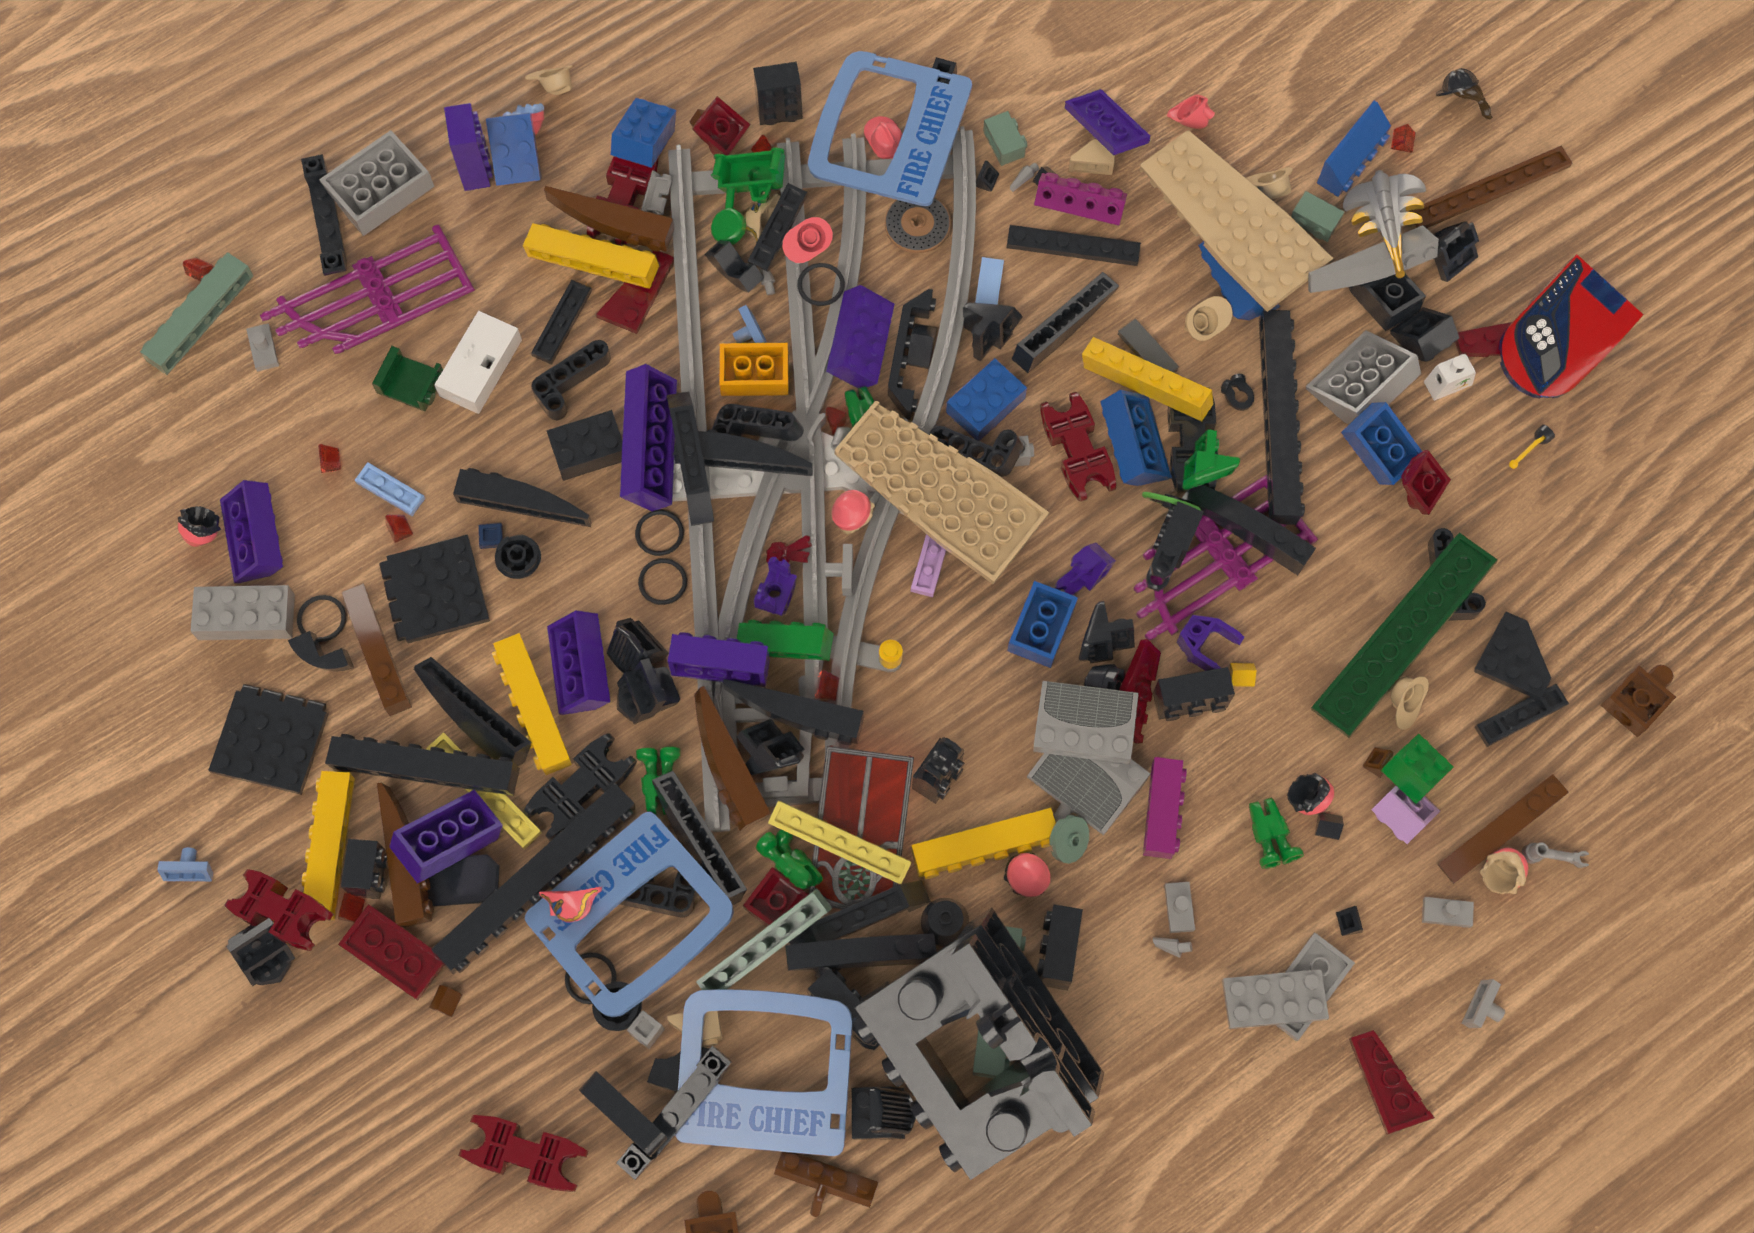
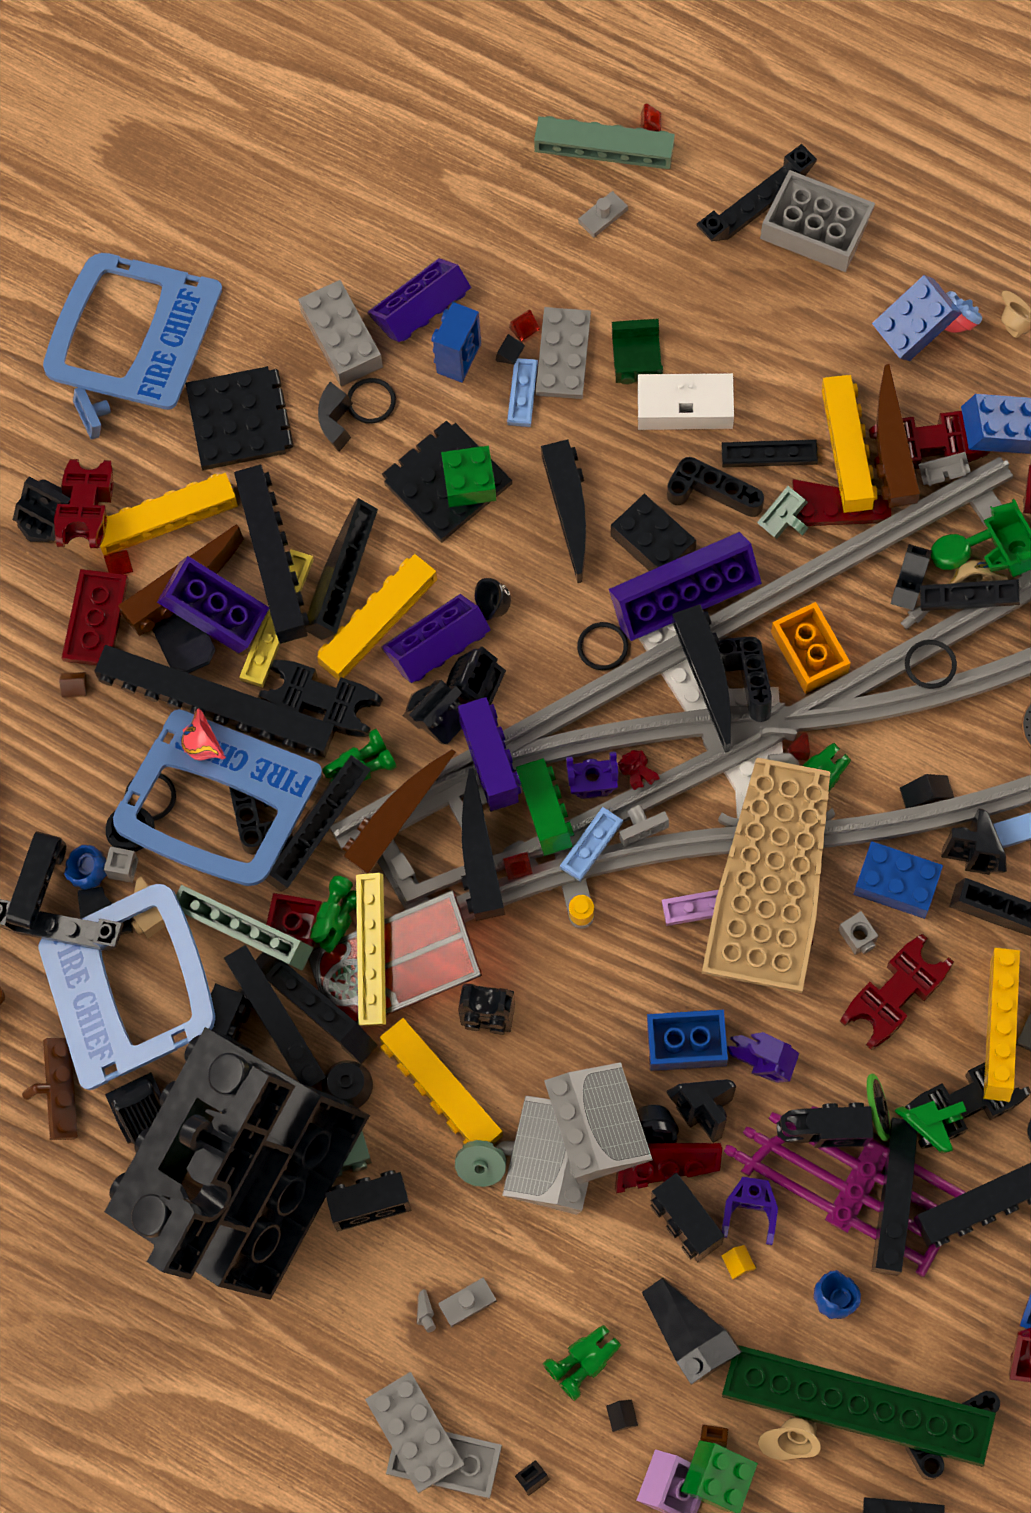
camera: 70 degrees right, 0 degrees up
(160, 763) = (168, 347): none -> medium blue door
(198, 525) = (402, 252): black hair -> none
(316, 515) = (456, 341): none -> blue brick
(346, 480) = (509, 350): none -> black slope
(364, 869) = (153, 553): black brick -> none
(373, 439) = (563, 353): none -> light grey plate
(376, 650) = (361, 461): reddish brown slope -> none
(379, 294) = (709, 281): magenta piece -> none
(398, 527) = (489, 418): clear red slope -> none
(447, 564) = (469, 476): none -> green brick
(468, 146) = (888, 274): dark purple brick -> none
(490, 535) = (522, 501): dark blue tile -> none
(517, 556) = (508, 532): black cone -> none
(568, 598) = (492, 598): none -> black helmet
(624, 334) = (784, 513): none -> sand green plate
(631, 1062) = (85, 867): none -> blue hair
(668, 601) = (555, 651): black tyre -> none
(690, 458) = (677, 627): black slope -> none
(751, 329) = (853, 626): medium blue tile -> none
(770, 747) = (431, 842): black piece -> none
(807, 240) = (964, 626): coral piece -> none
(838, 618) = (591, 844): none -> light blue tile
(852, 511) = (706, 805): coral hair -> none
(860, 337) = (896, 728): dark purple brick -> none
(920, 308) = (966, 771): black slope -> none
(991, 455) = (835, 909): black beam -> none
(1027, 875) = (428, 1141): coral hair -> none
(1135, 438) = (935, 1044): blue slope -> none
(1163, 808) = (556, 1241): magenta brick -> none
(1291, 736) = (692, 1336): none -> black wedge
(1307, 610) = (836, 1295): none -> blue hair
(1310, 794) = (640, 1381): black hair -> none

